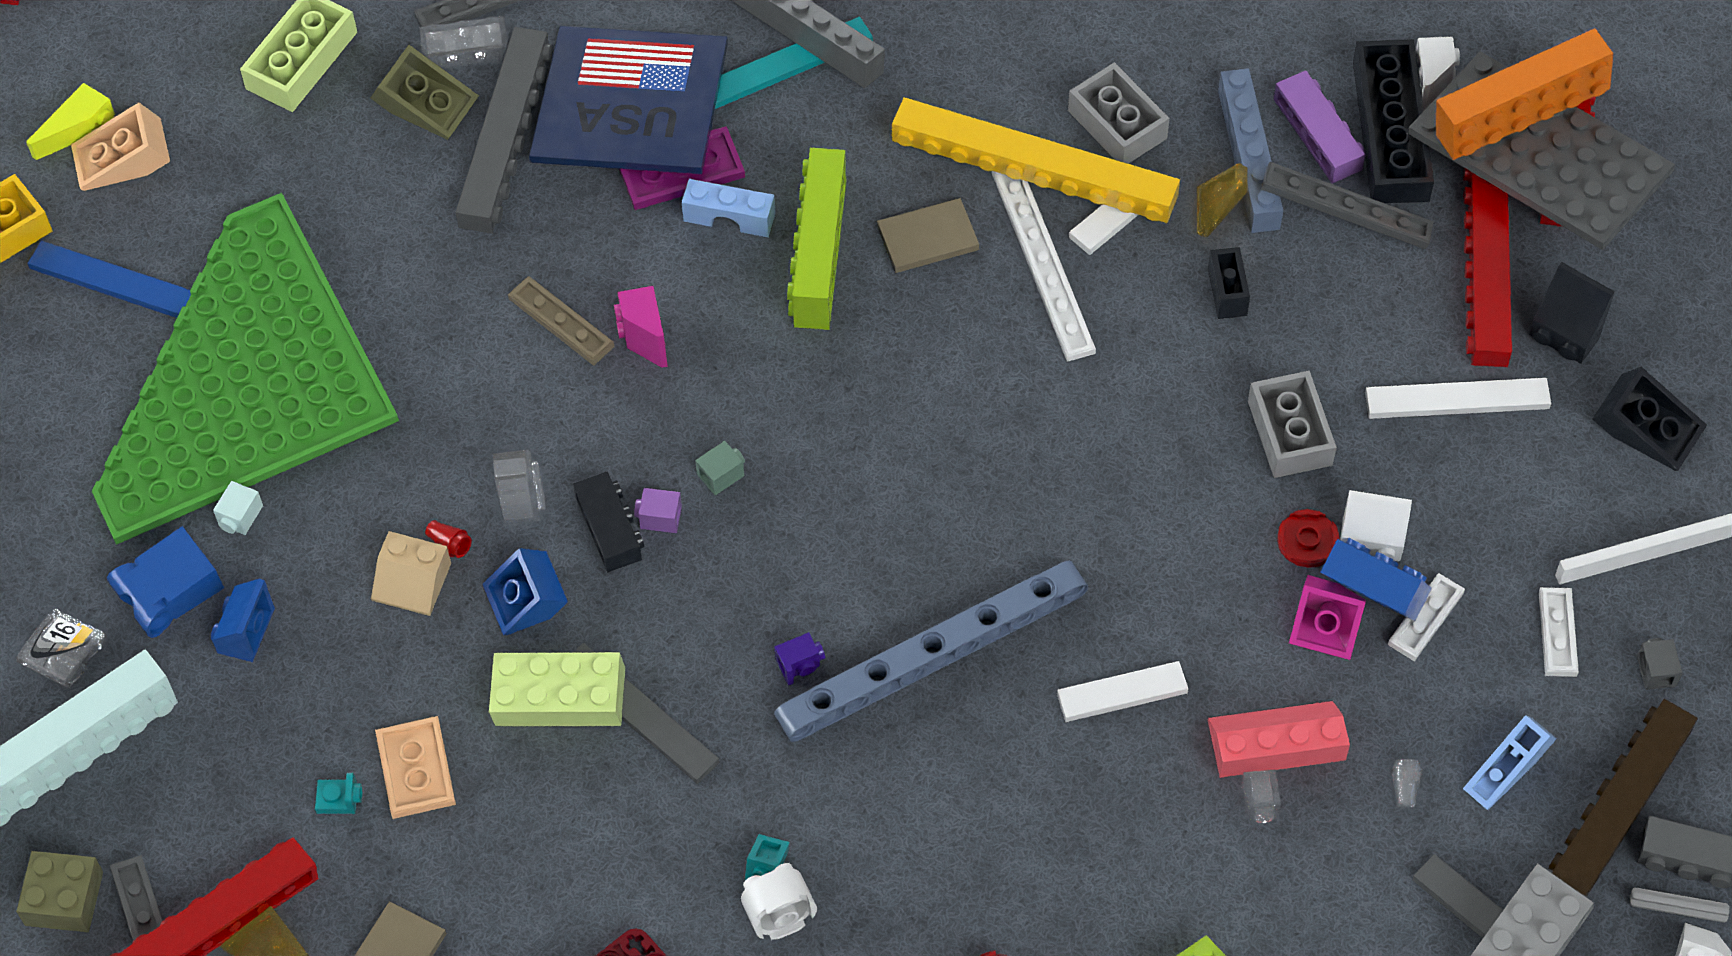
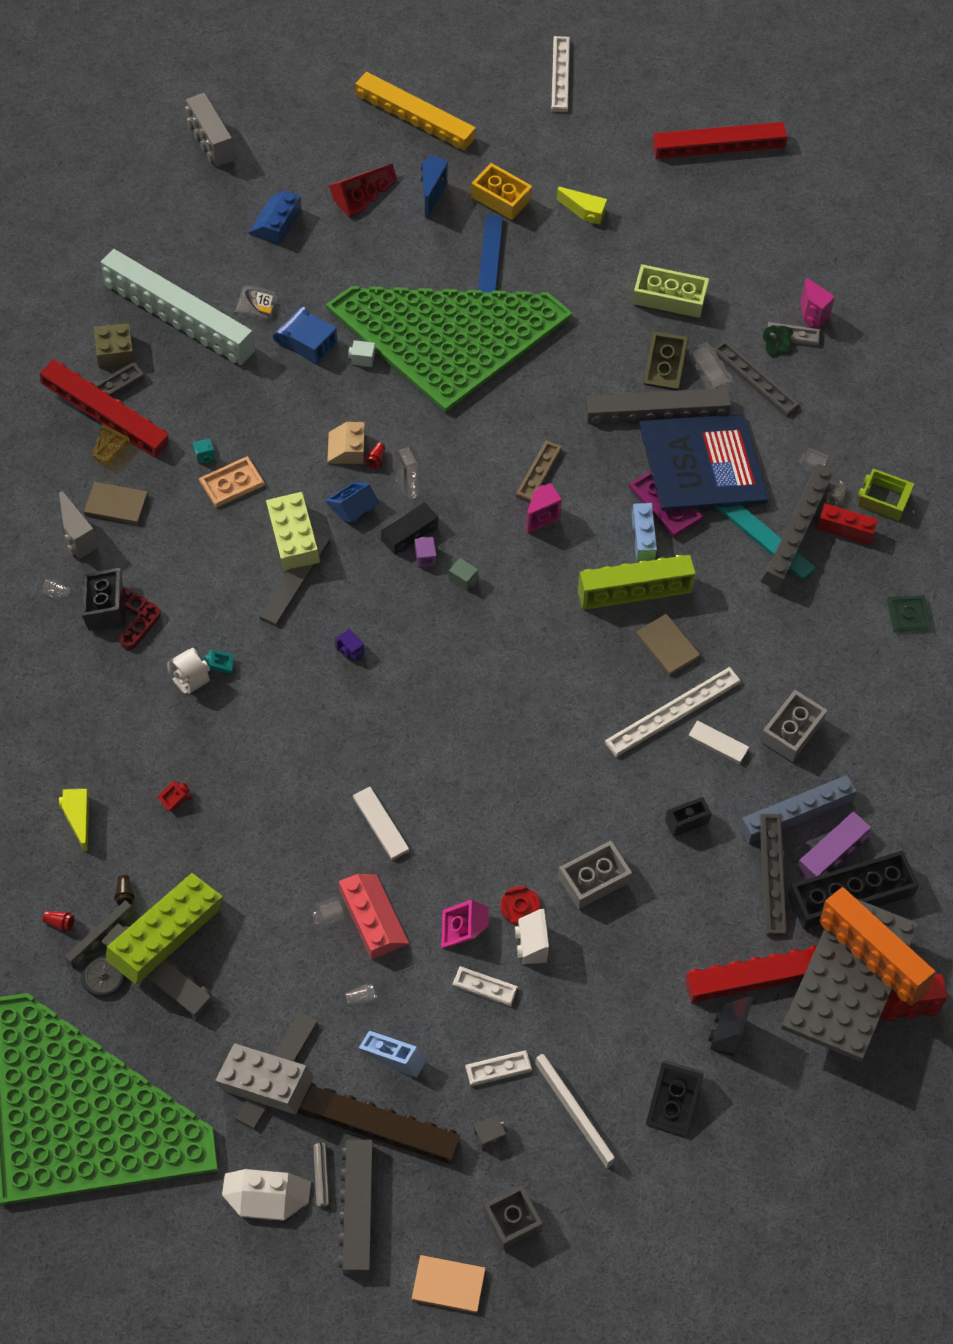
camera: 70 degrees right, 0 degrees up
(121, 149) = (574, 233): light nougat slope -> none
(243, 620) = (292, 377): blue slope -> none
(912, 662) = (386, 723): sand blue beam -> none
(1035, 160) = (739, 687): yellow brick -> none
(1219, 197) = (754, 798): clear yellow wing -> none
(1377, 578) = (489, 941): blue brick -> none
(1436, 65) = (901, 901): white slope -> none
(1457, 398) = (654, 976): white tile -> none

